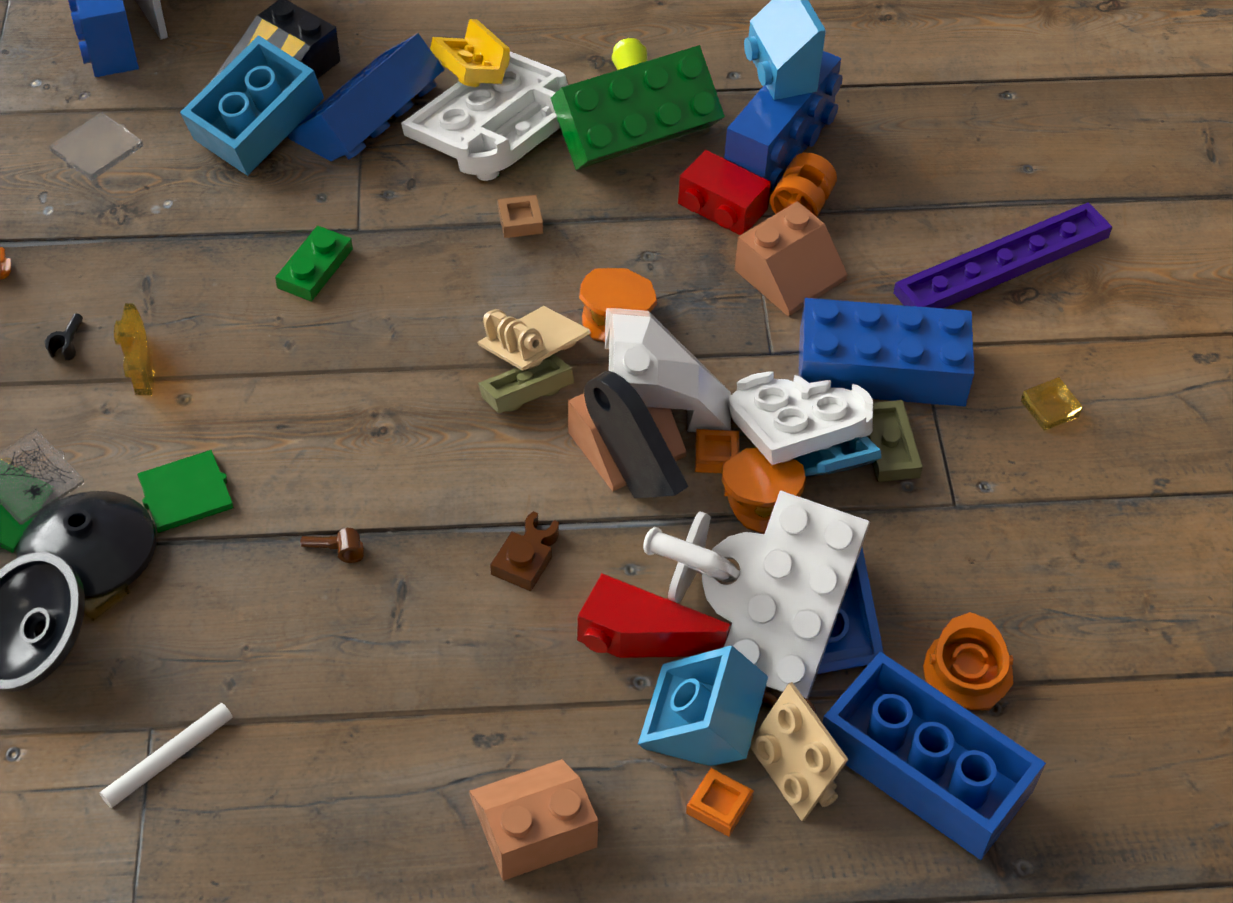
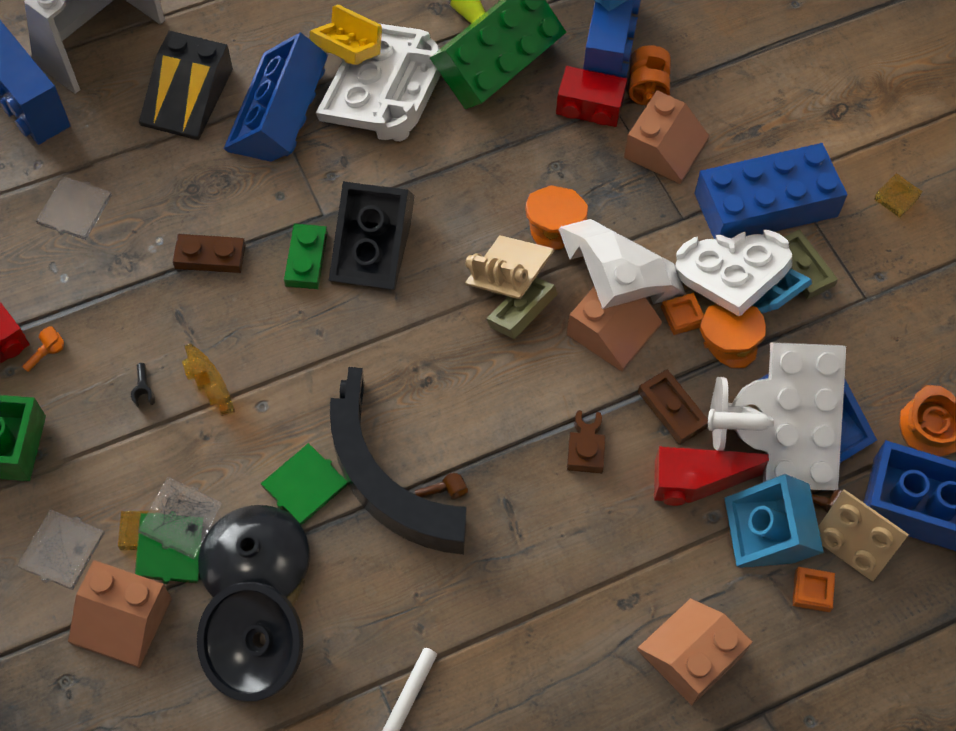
camera: 20 degrees left, 10 degrees up
(211, 229) = (209, 253): none -> reddish brown plate
(252, 105) = (195, 135): dark azure brick -> none
(278, 557) = (402, 512): none -> black arch
(395, 258) = (371, 235): none -> black slope
(520, 216) = (447, 165): medium nougat plate -> none
(632, 437) = (638, 332): black tile -> none
(635, 523) = (673, 406): none -> reddish brown plate
(1004, 259) = (815, 89): dark purple plate -> none

